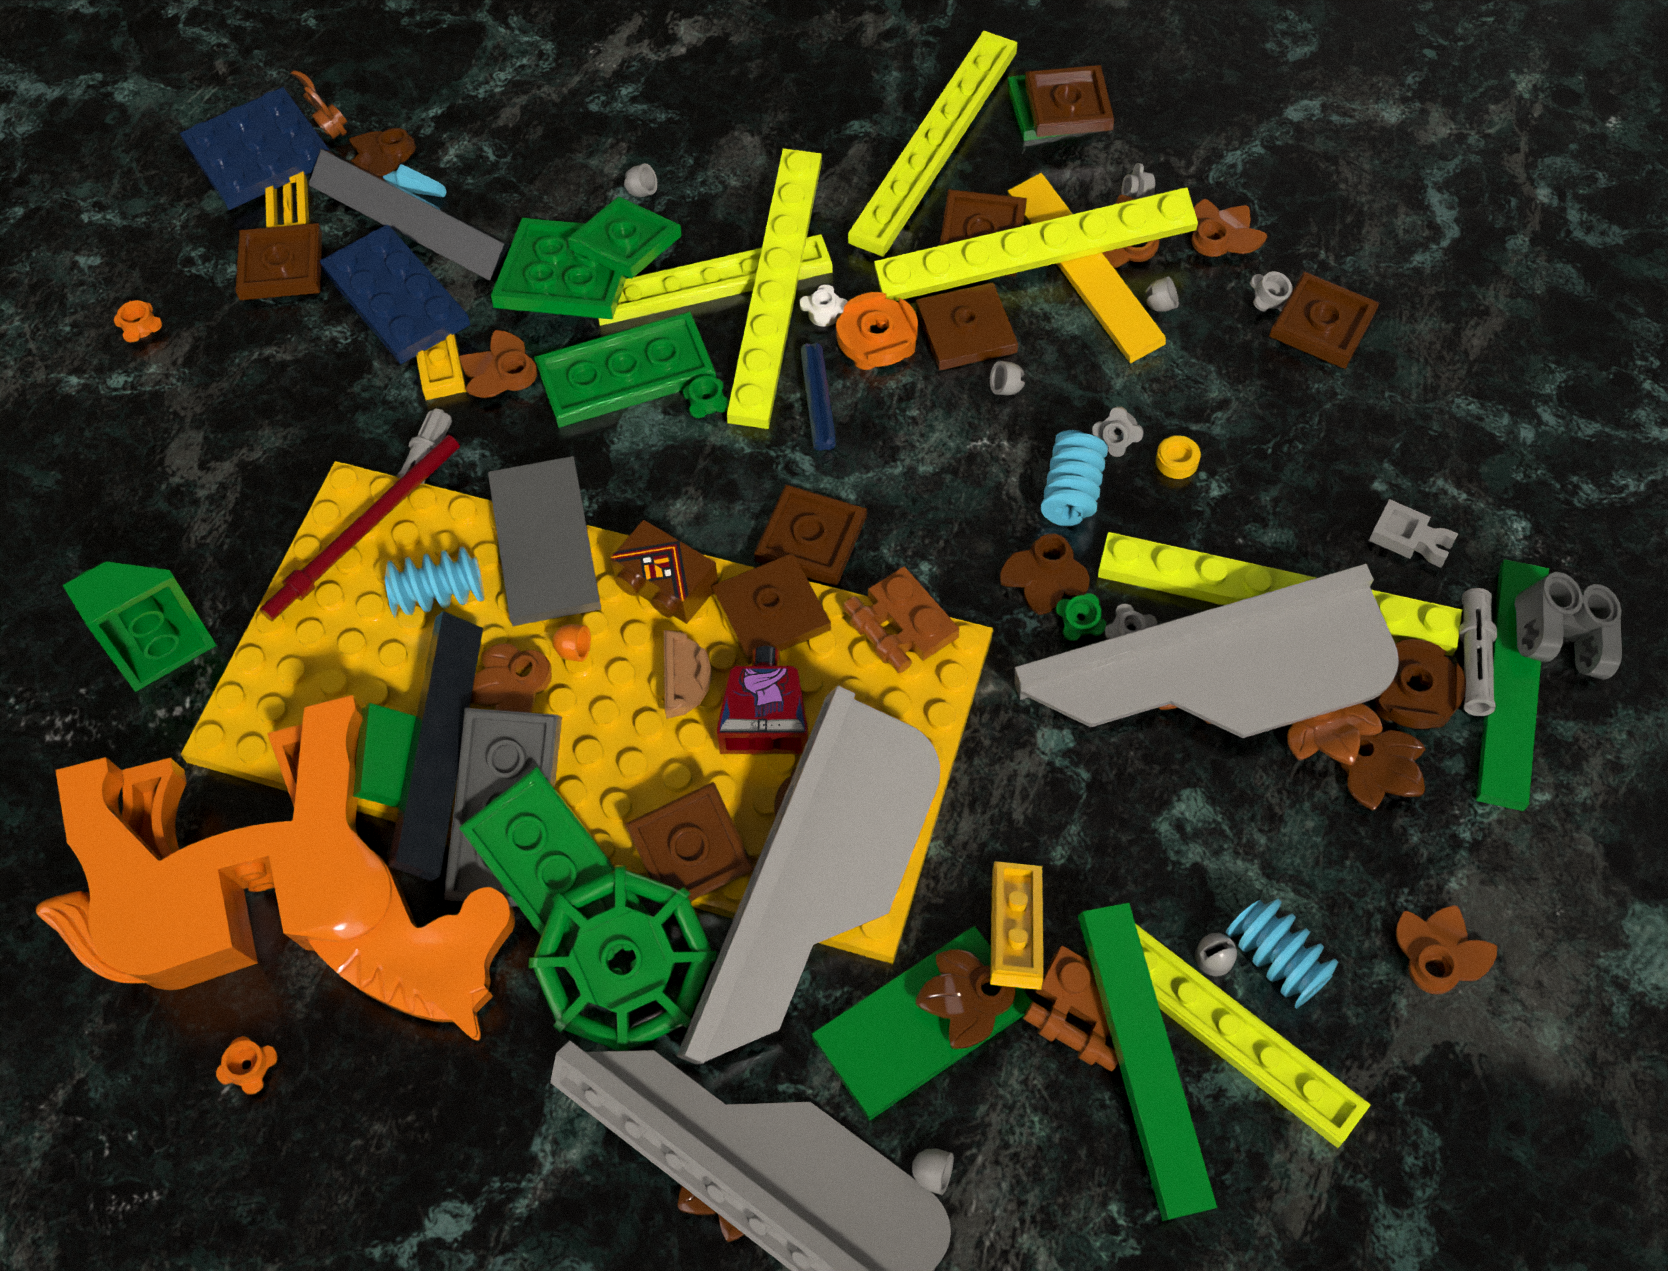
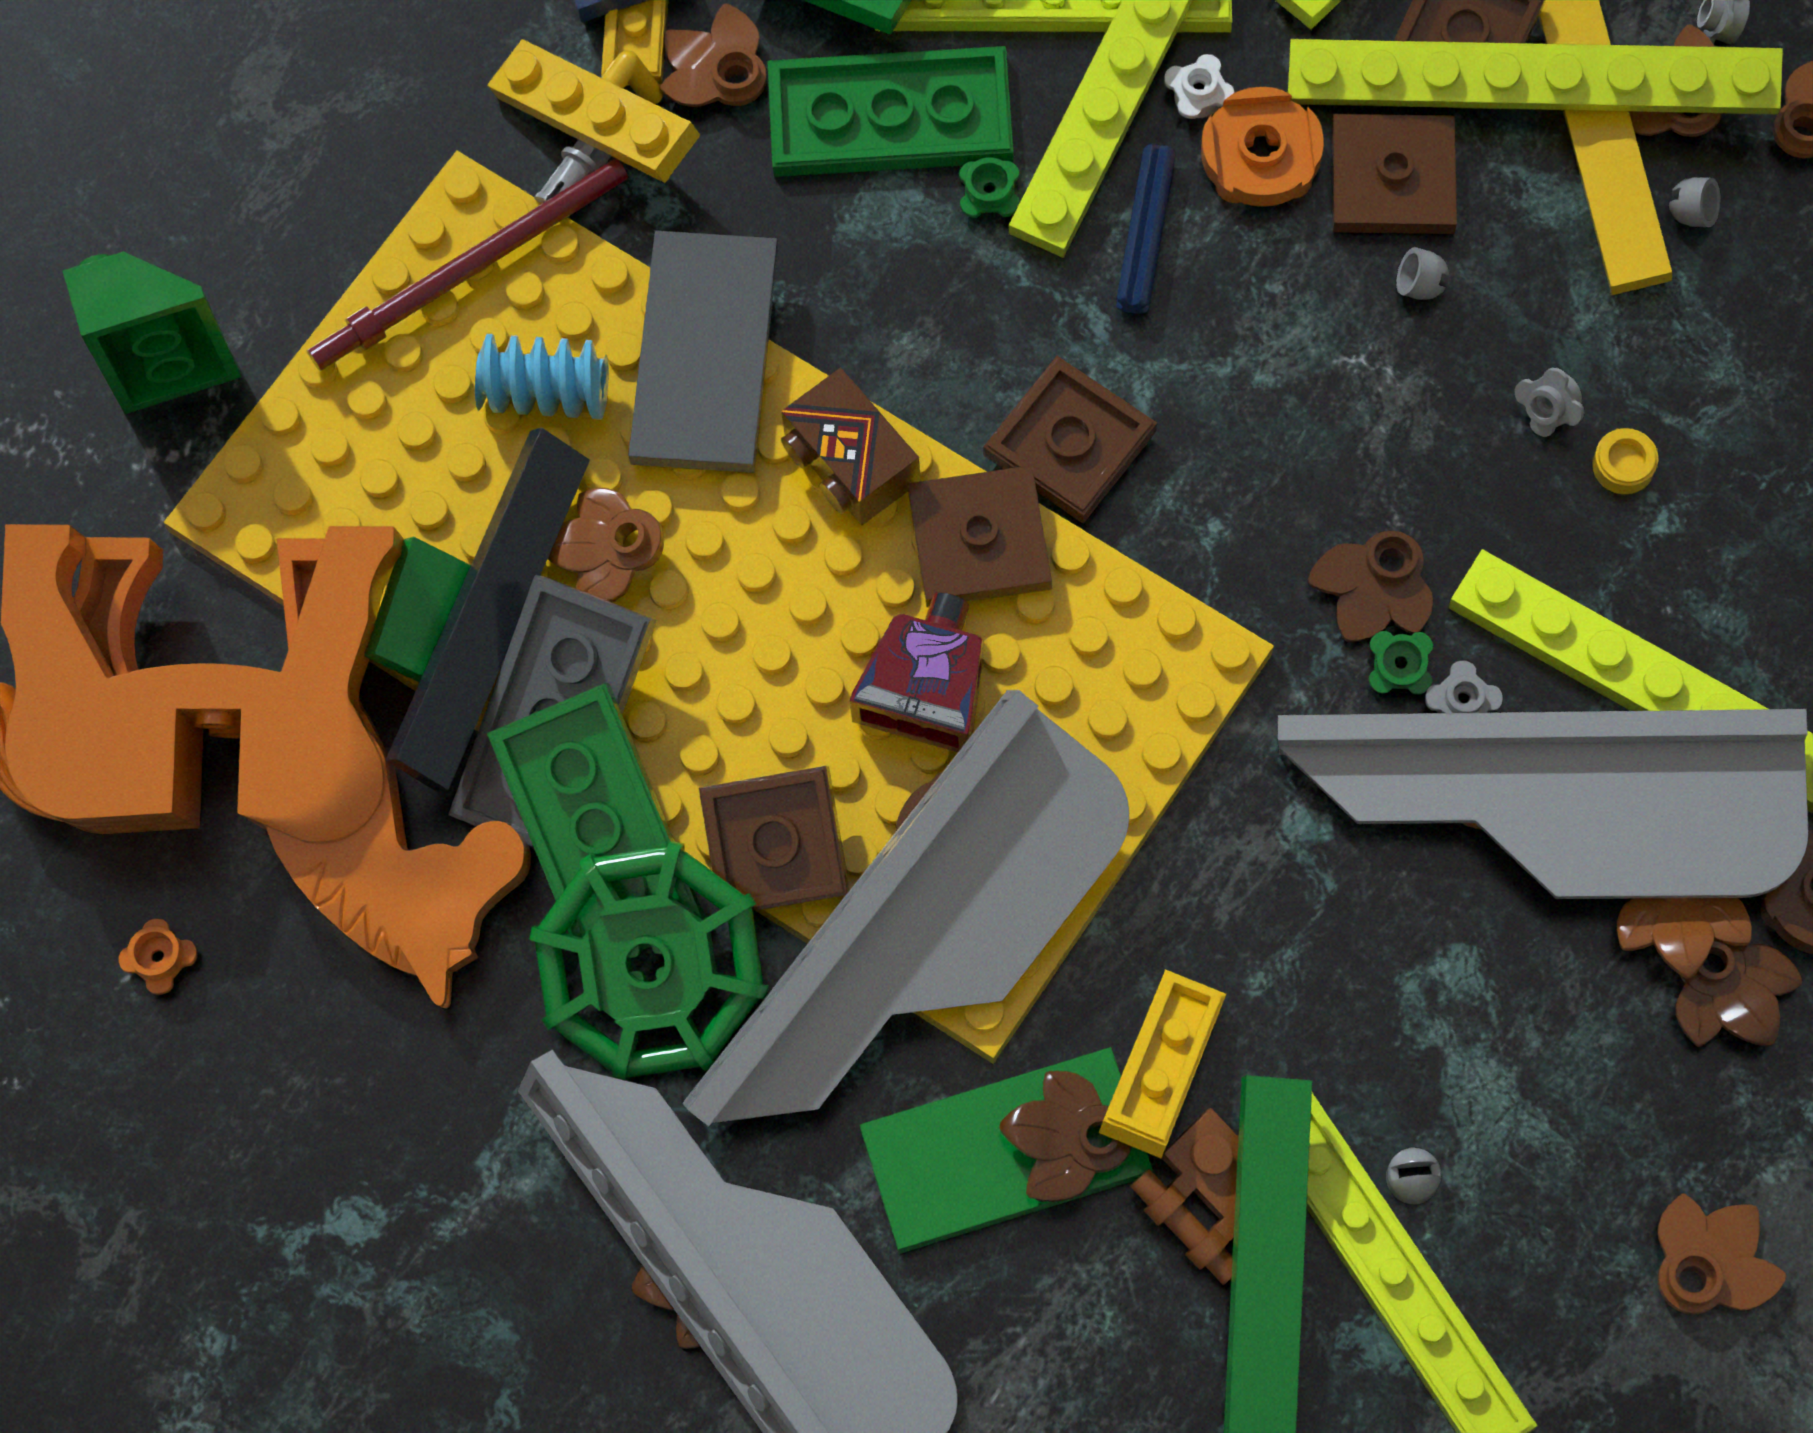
camera: 20 degrees right, 10 degrees up
(436, 408) = (598, 107): none -> yellow plate
(572, 642) = (702, 513): orange hinge -> none
(686, 673) = (837, 599): medium nougat plate -> none
(911, 612) = (1166, 596): dark orange plate -> none
(933, 1170) = (957, 1338): light grey hinge -> none
(1074, 477) = (1460, 455): medium azure piece -> none
(1282, 949) = (1497, 1196): medium azure piece -> none

